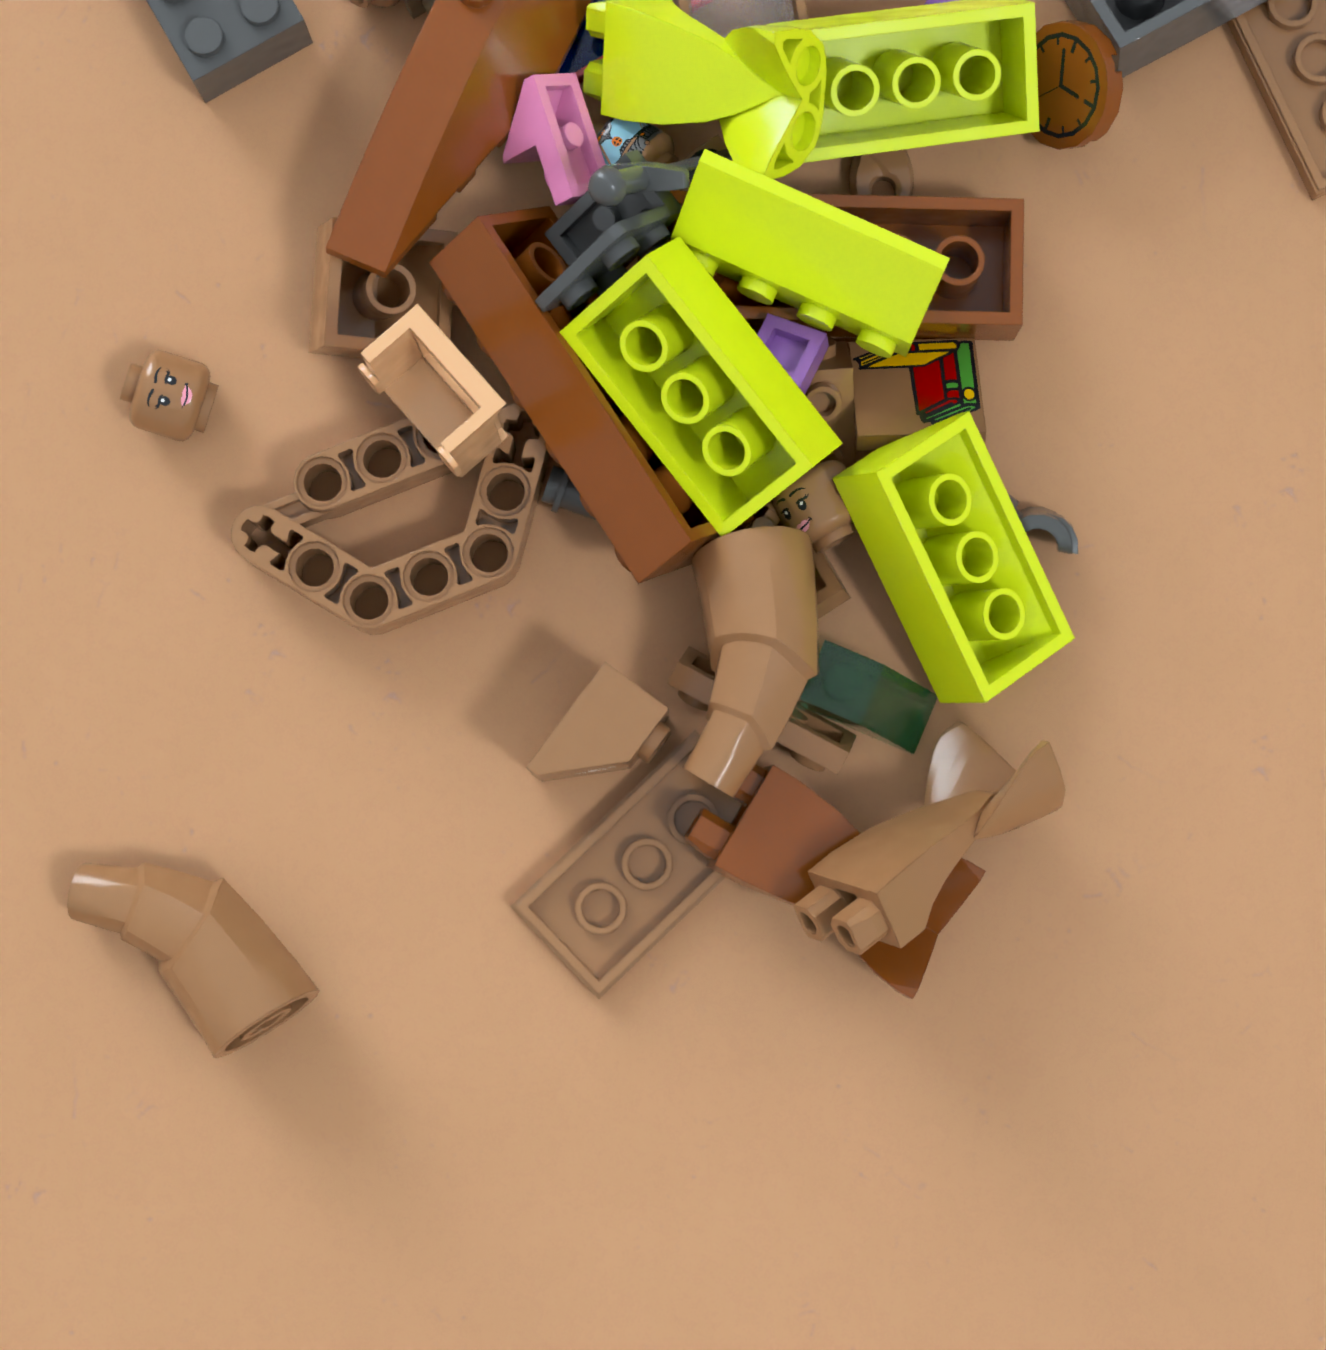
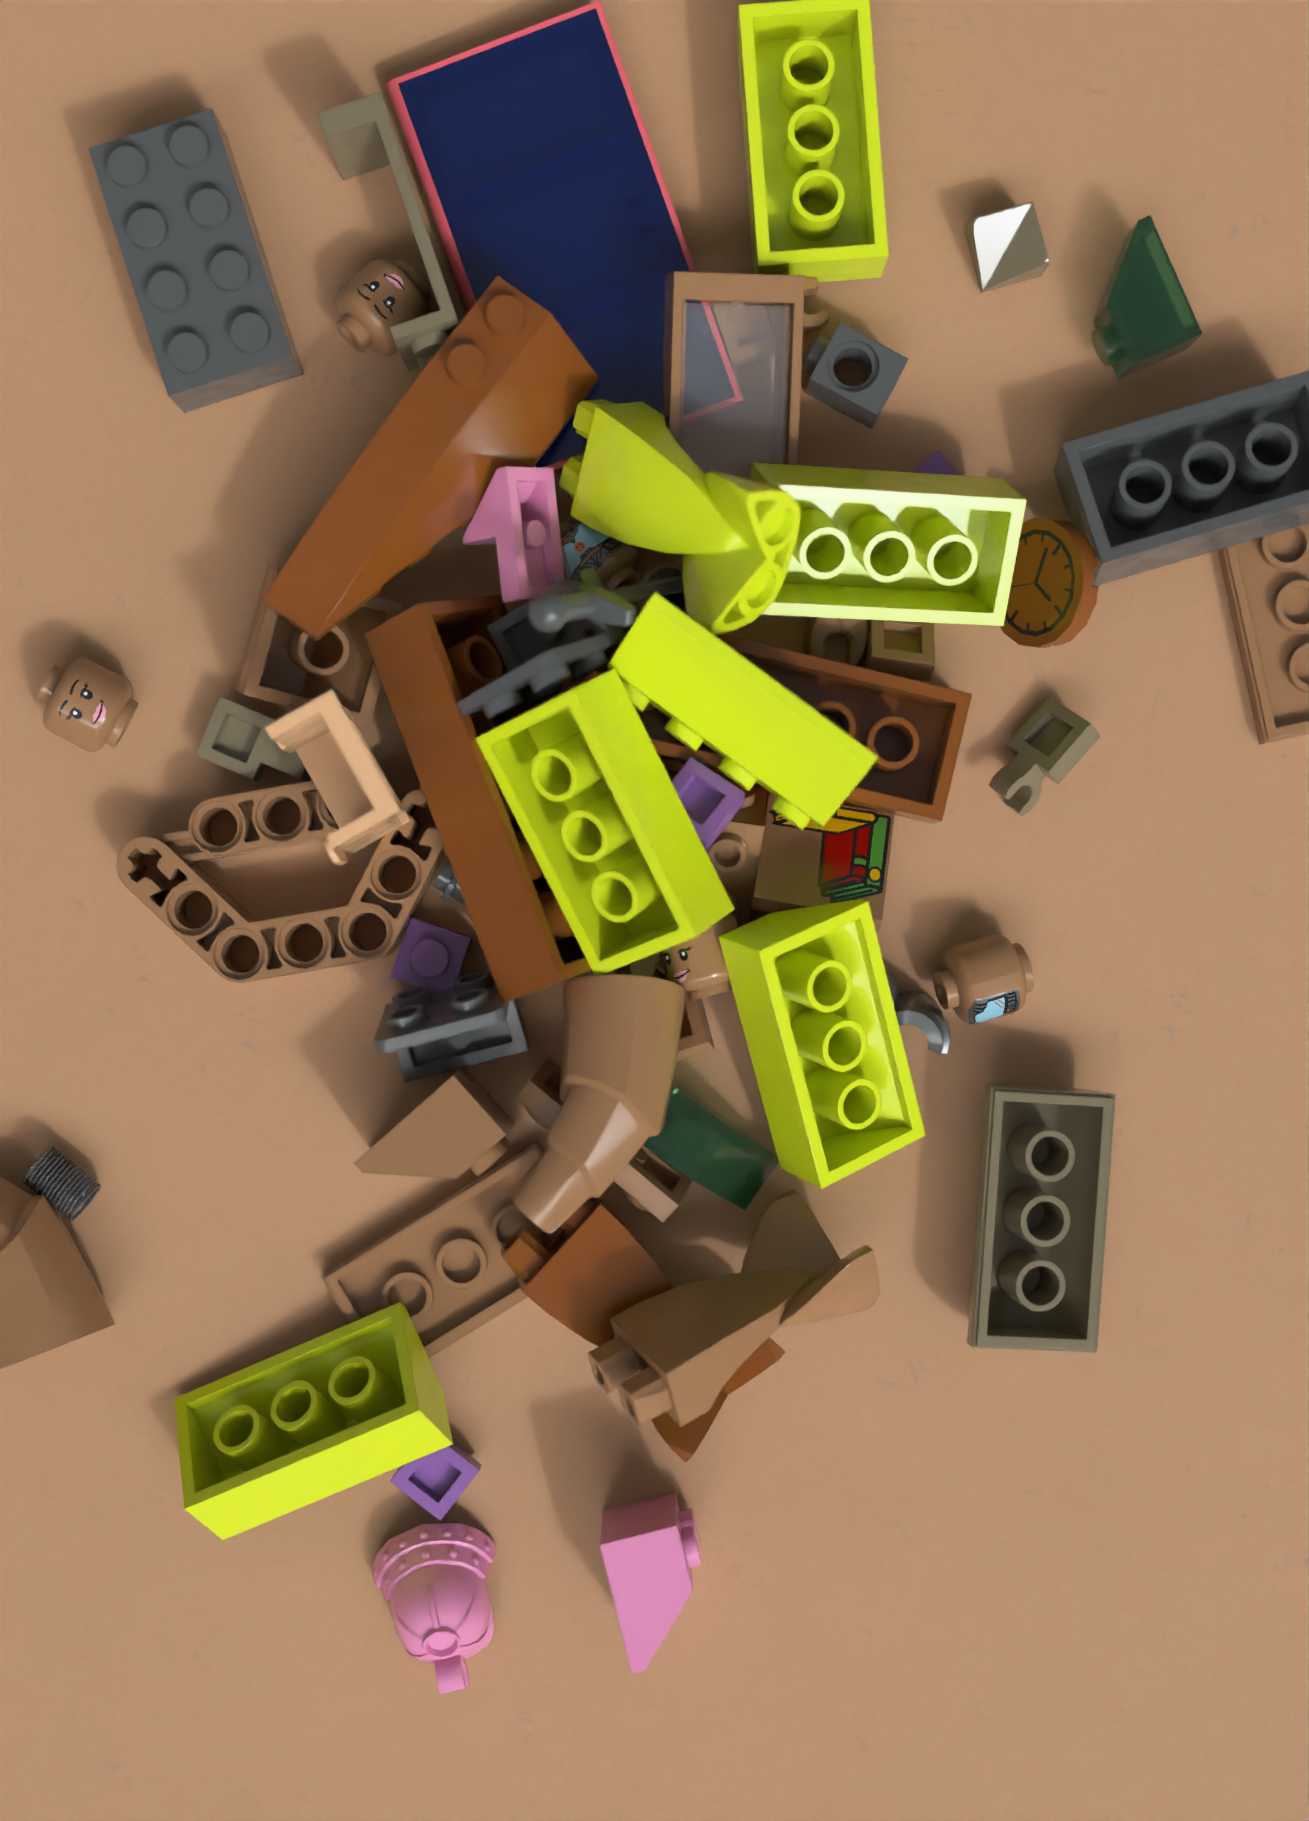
camera: 10 degrees right, 5 degrees up
(219, 872) = (72, 1191): none -> dark grey piece
(331, 398) = (240, 743): none -> dark tan plate
(531, 1049) = (309, 1423): none -> neon yellow slope
(554, 572) = (430, 956): none -> medium lavender plate
(593, 628) = (451, 1027): none -> dark grey bracket
(666, 1076) = (437, 1478): none -> medium lavender plate
(694, 1198) = (439, 1595): none -> bright pink helmet
(900, 1119) = (649, 1569): none -> bright pink slope
(945, 172) = (901, 648): none -> medium nougat plate
(1097, 475) = (984, 978): none -> medium nougat head
(1104, 243) = (1044, 746): none -> dark tan plate
(1205, 692) = (1041, 1218): none -> dark tan brick

